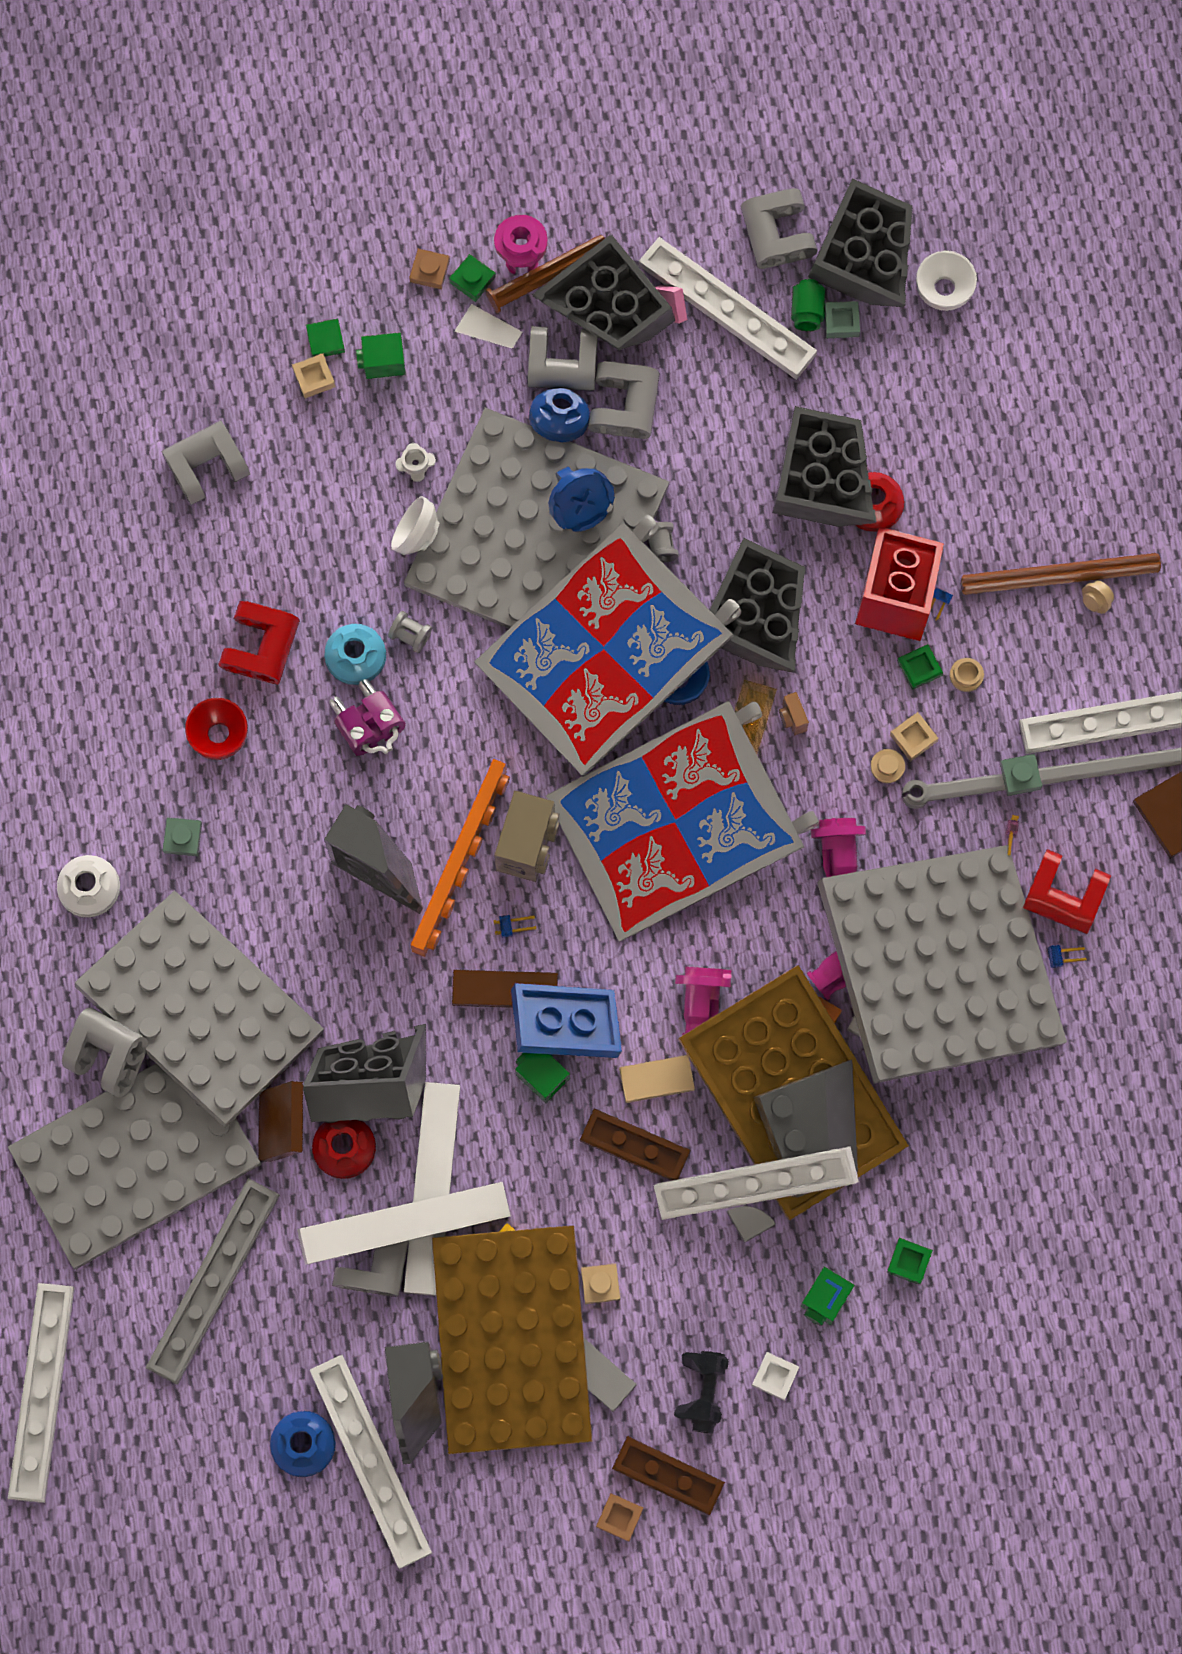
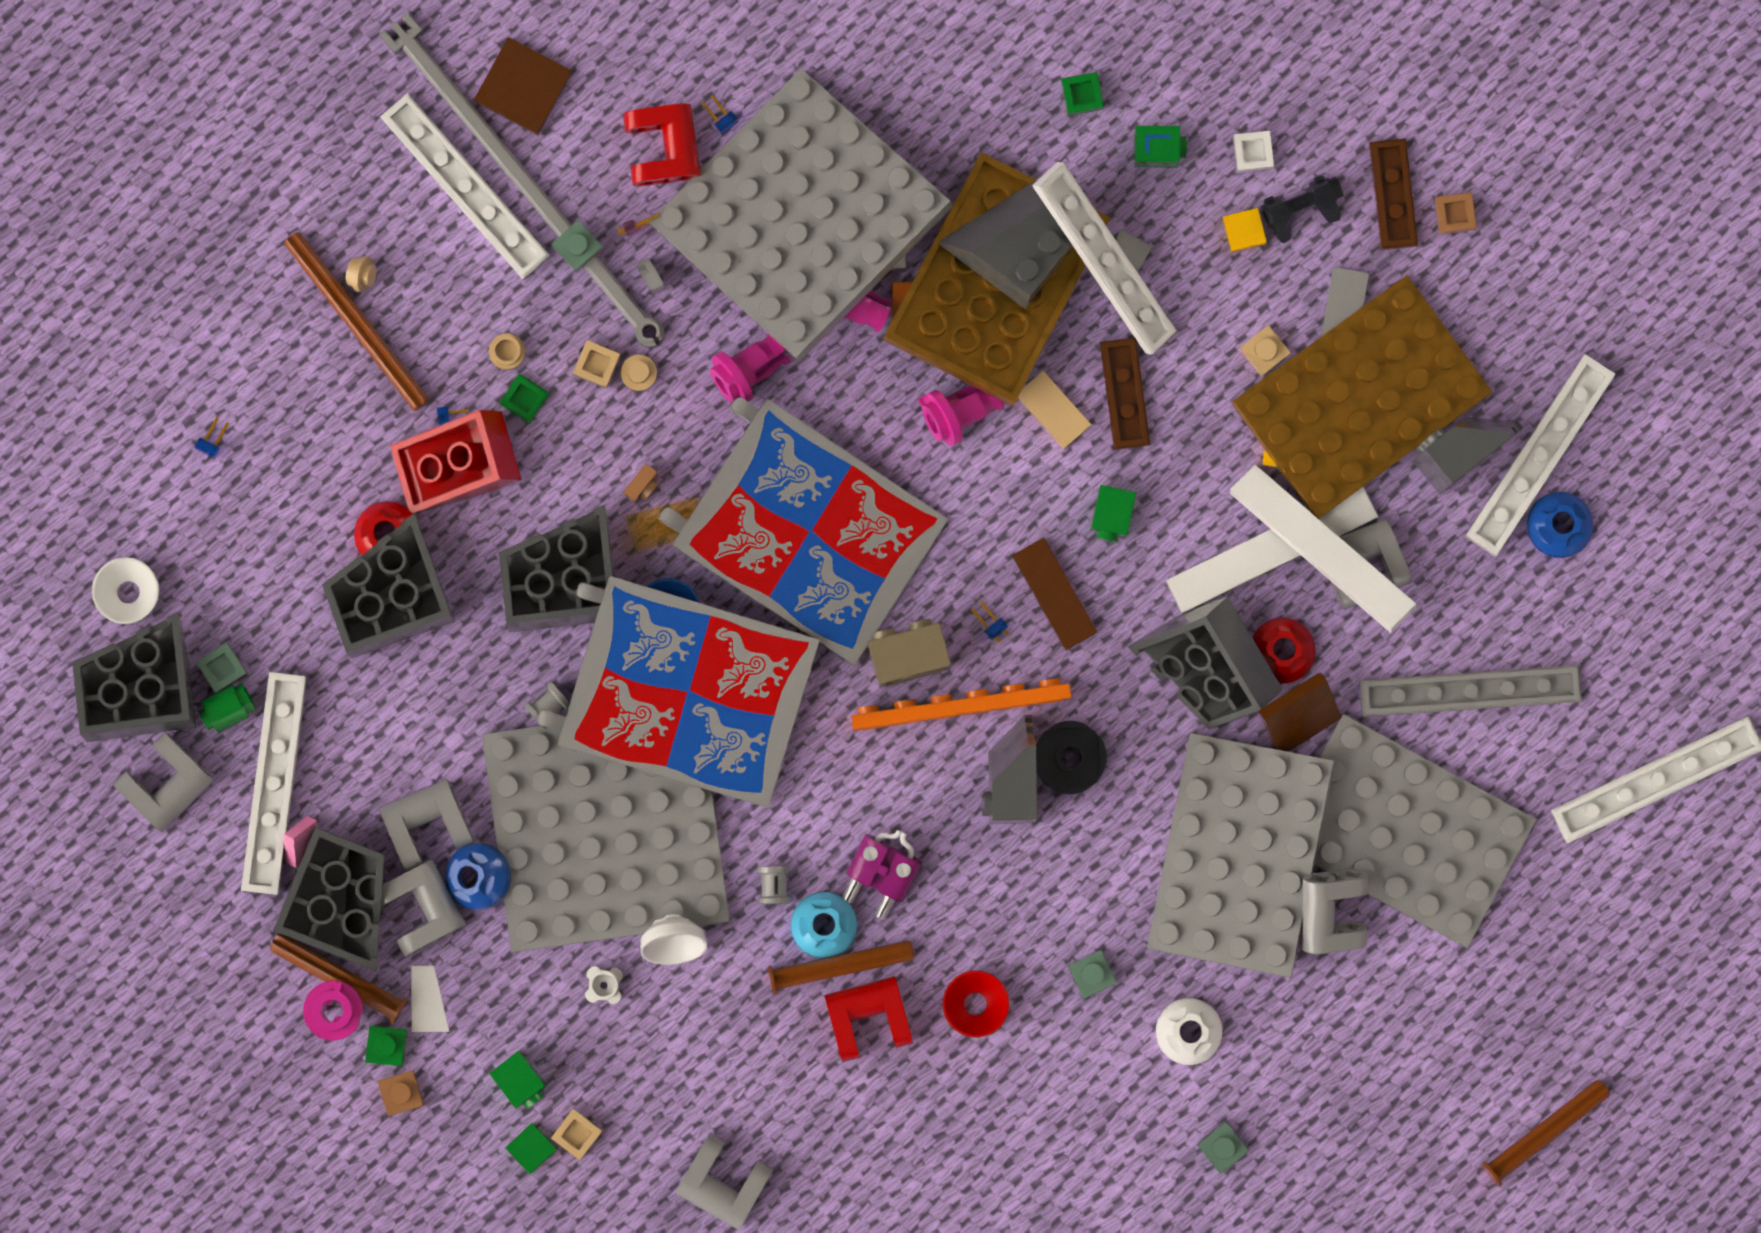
camera: 125 degrees left, 10 degrees up
(315, 646) = (840, 965): none -> dark orange axle
(372, 939) = (1084, 742): none -> black plate
(566, 1020) = (1055, 516): plate -> none
(580, 498) = (559, 798): blue tile -> none
(713, 1329) = (1244, 230): none -> yellow tile
(958, 820) = (650, 276): none -> light grey tile
(1025, 406) = (208, 448): none -> clear blue piece

